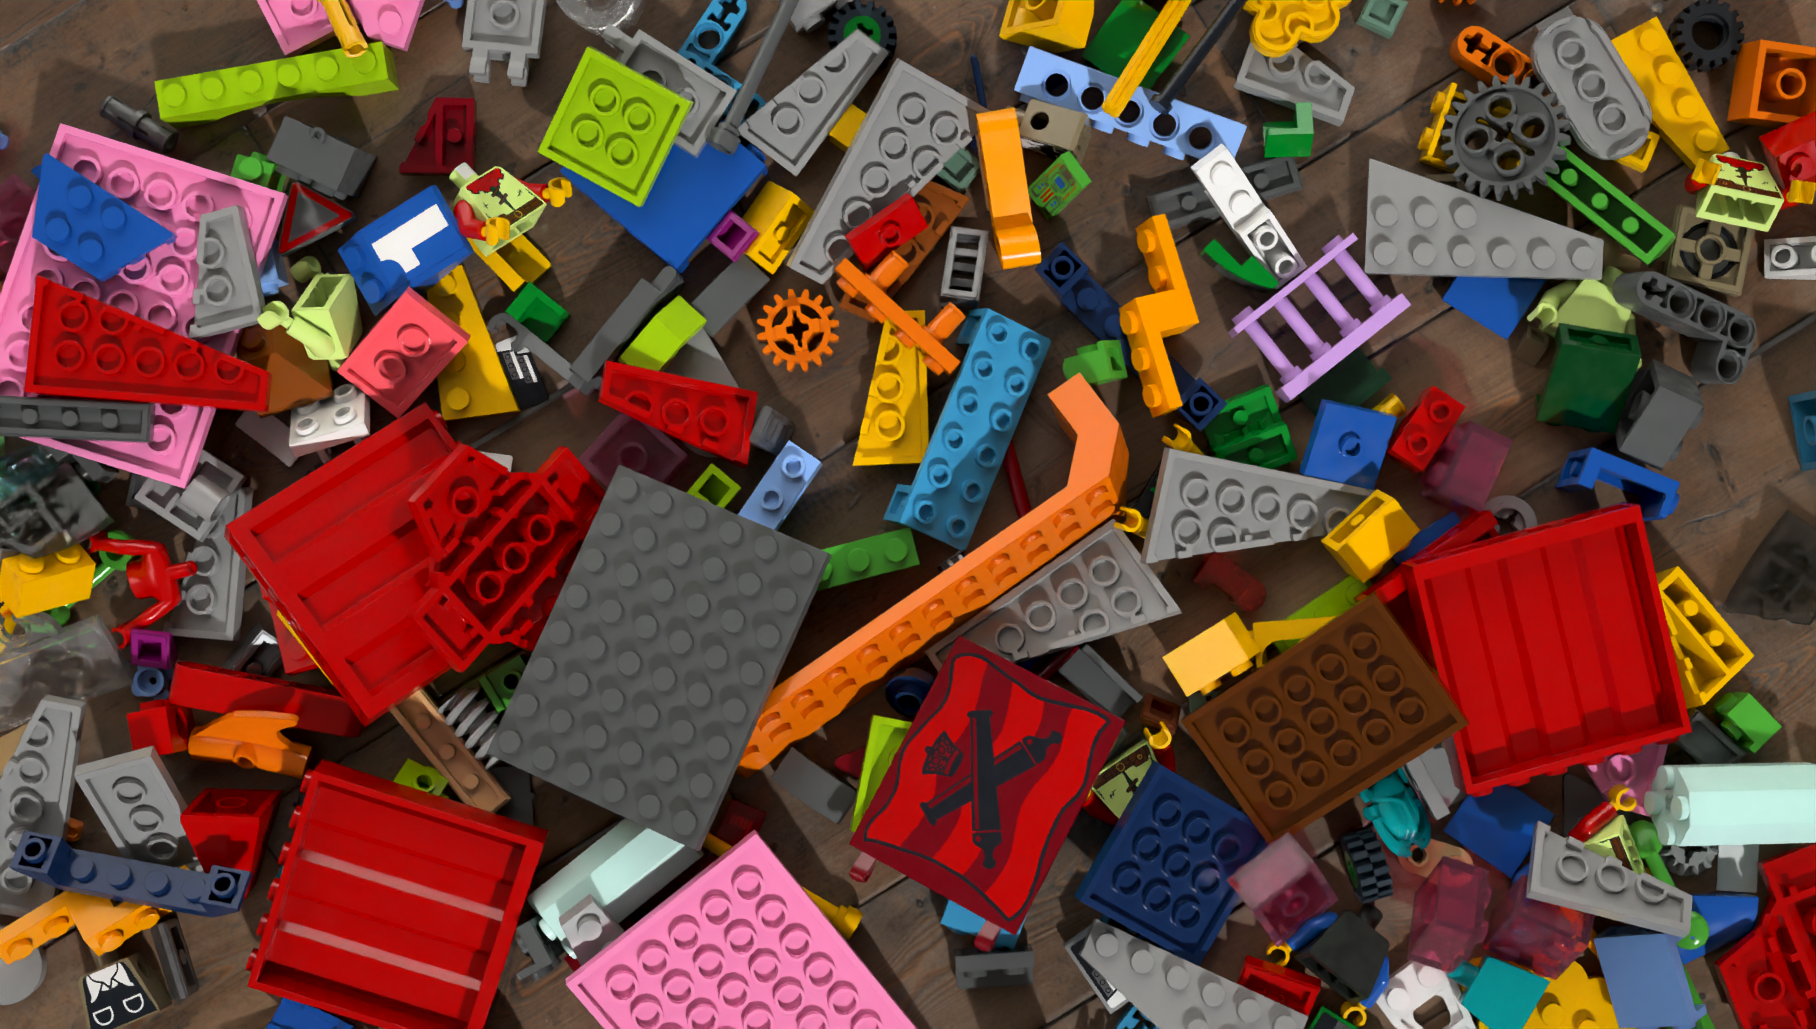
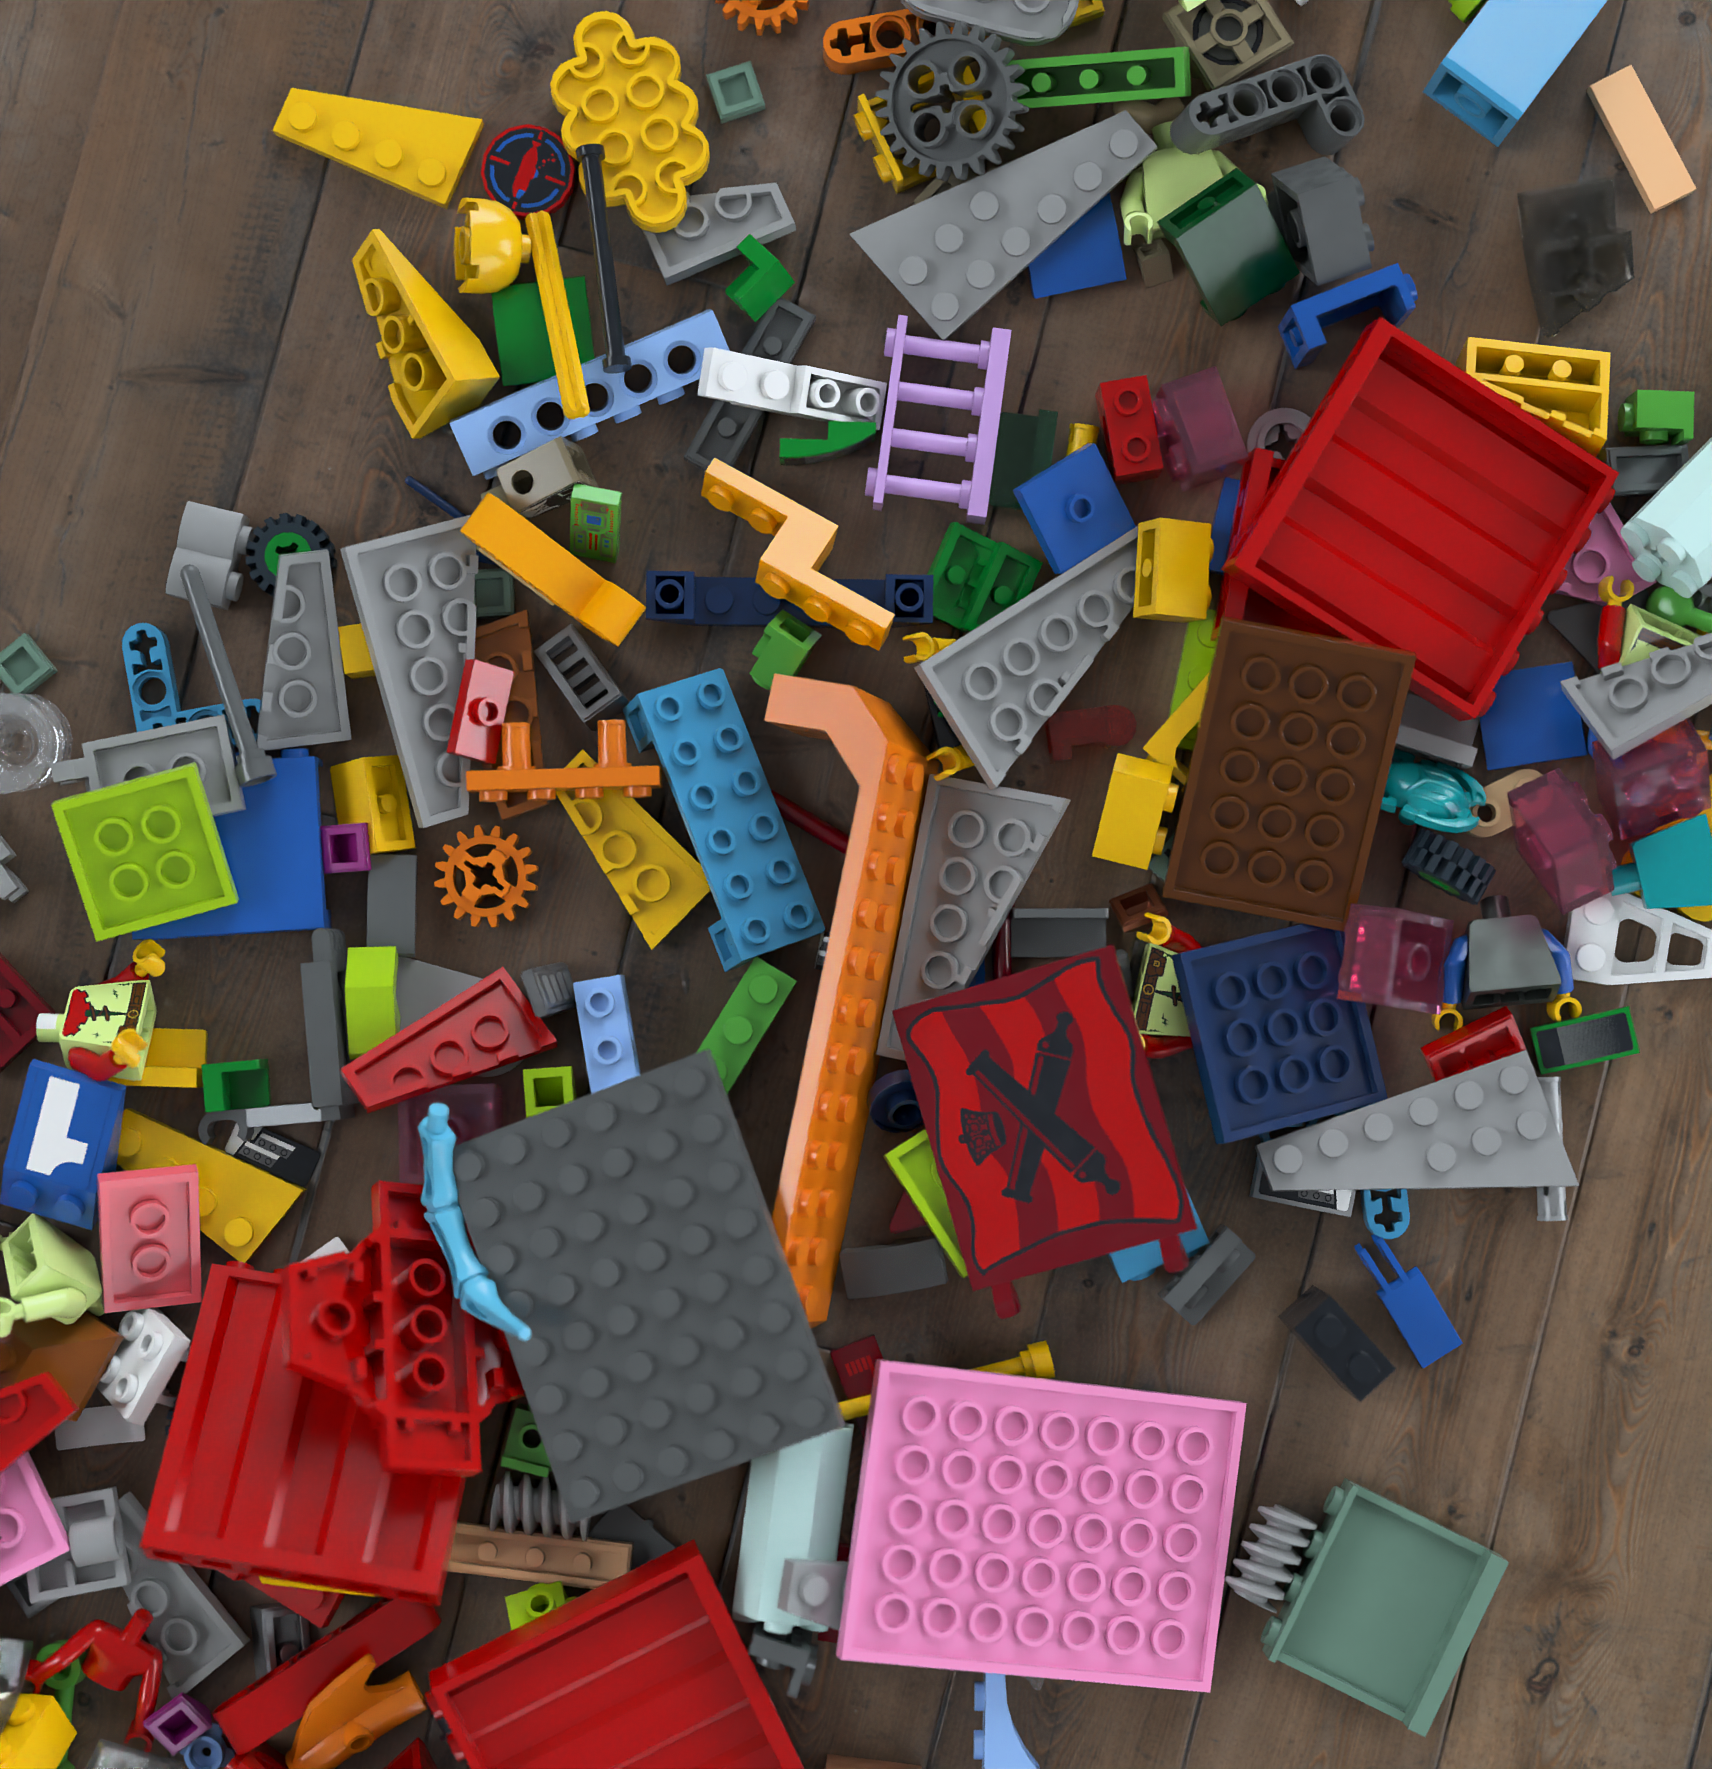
camera: 50 degrees left, 0 degrees up
(583, 508) = (447, 1222): none -> medium azure animal

